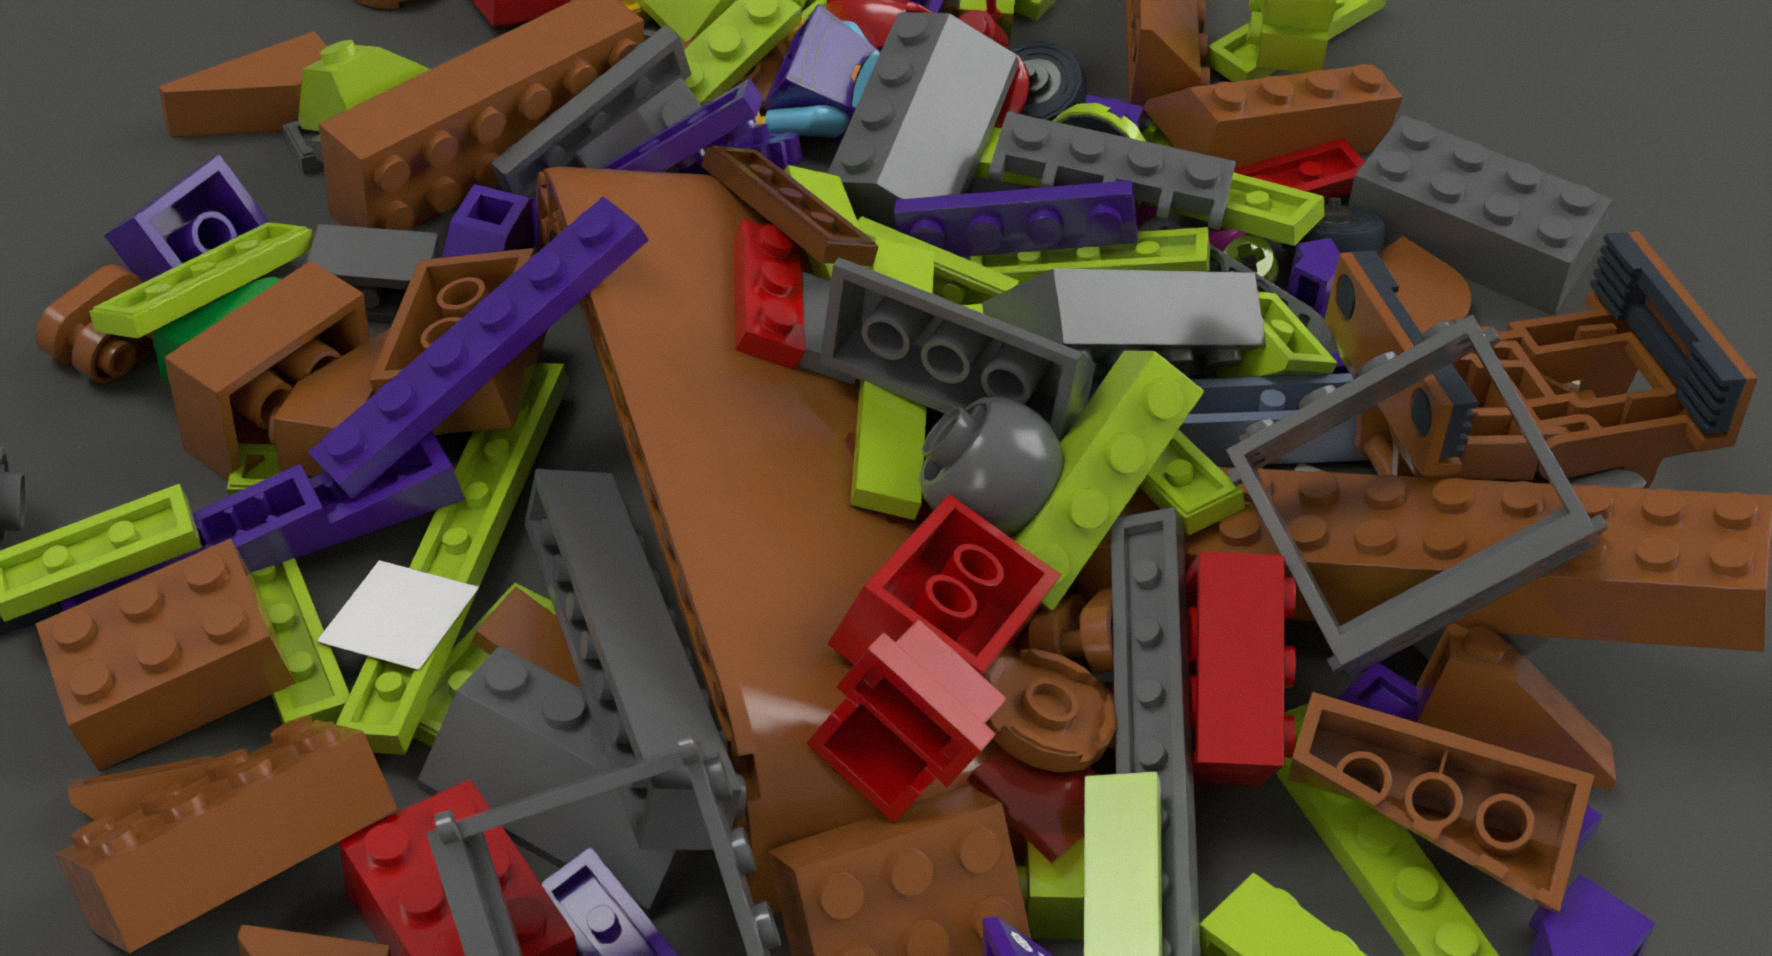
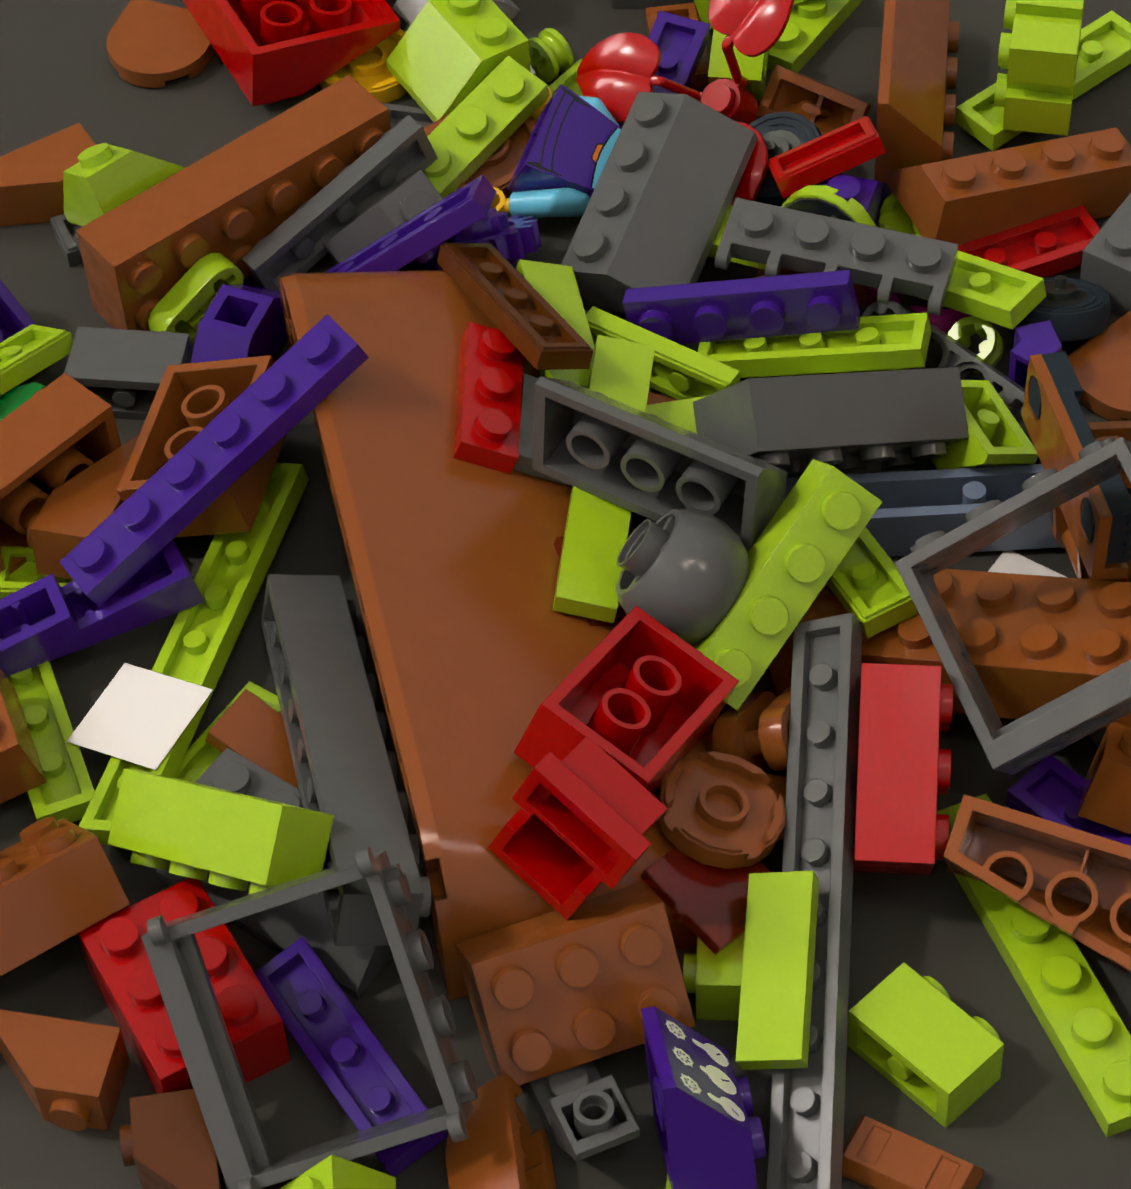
camera: 10 degrees right, 5 degrees up
(440, 197) = (192, 295): none -> lime beam
(499, 727) = (217, 832): none -> lime brick
(1089, 80) = (826, 156): none -> red tile
(1092, 47) = (815, 100): none -> dark orange slope

